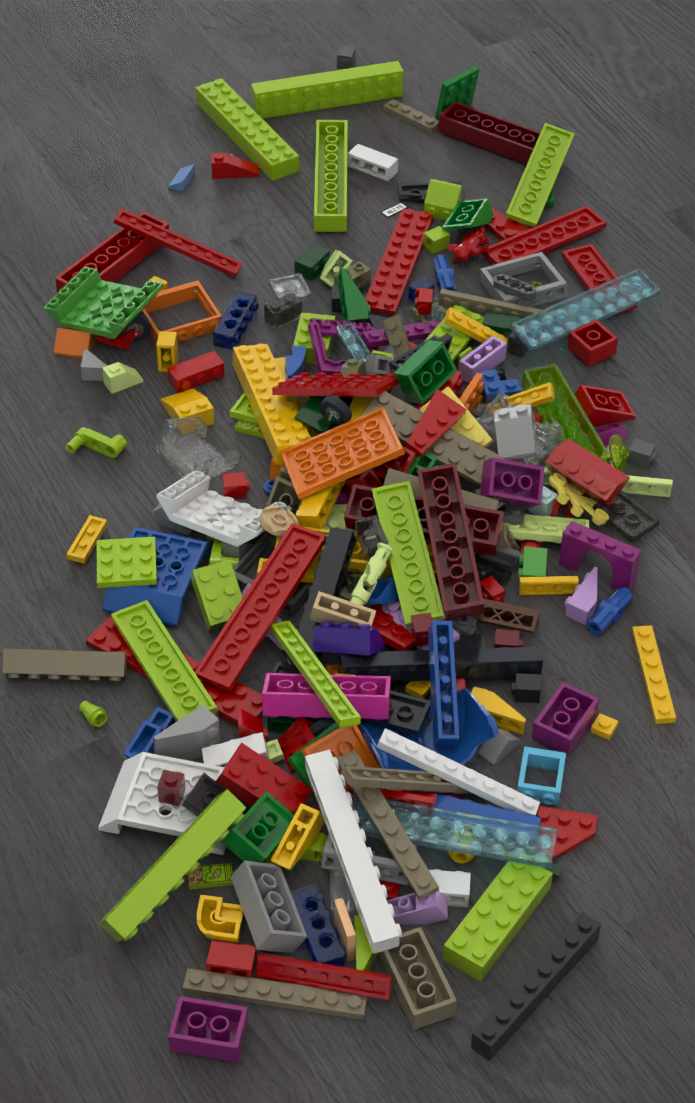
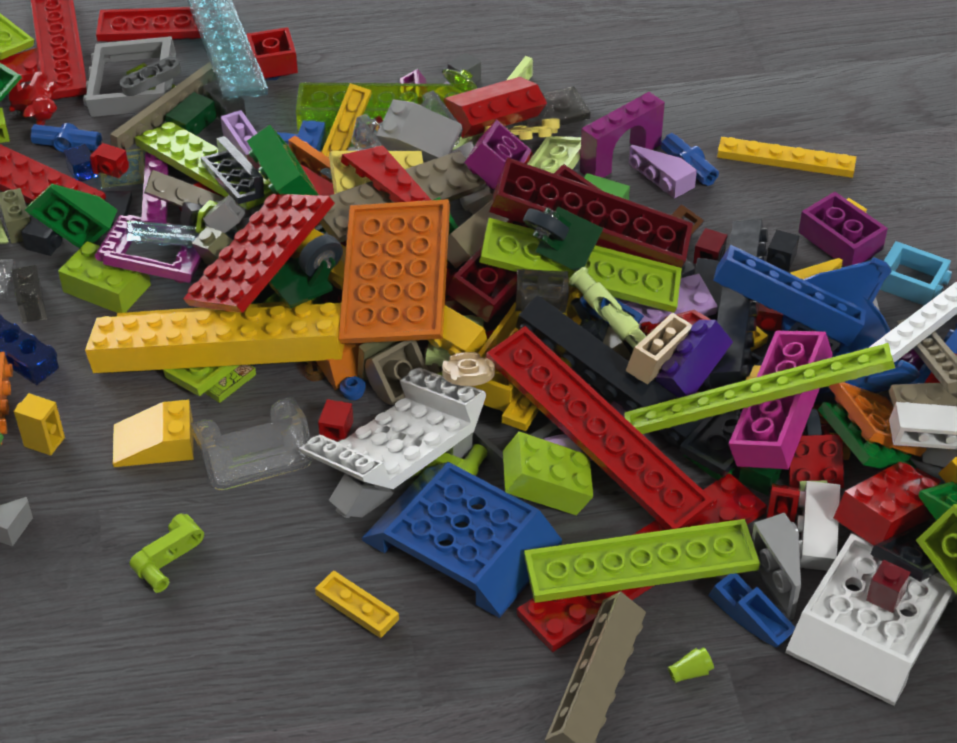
camera: 70 degrees left, 0 degrees up
(120, 376) = (47, 497): yellowish green slope -> none
(126, 562) = (452, 553): lime plate -> none
(196, 372) = (91, 410): red brick -> none
(296, 362) = (151, 299): blue slope -> none
(409, 520) = (563, 236): none -> dark green plate
(419, 628) = (695, 293): dark red brick -> none
(470, 326) = (195, 129): yellow plate -> none
(547, 585) = (638, 183): yellow tile -> none
(604, 405) = (374, 71): red slope -> none

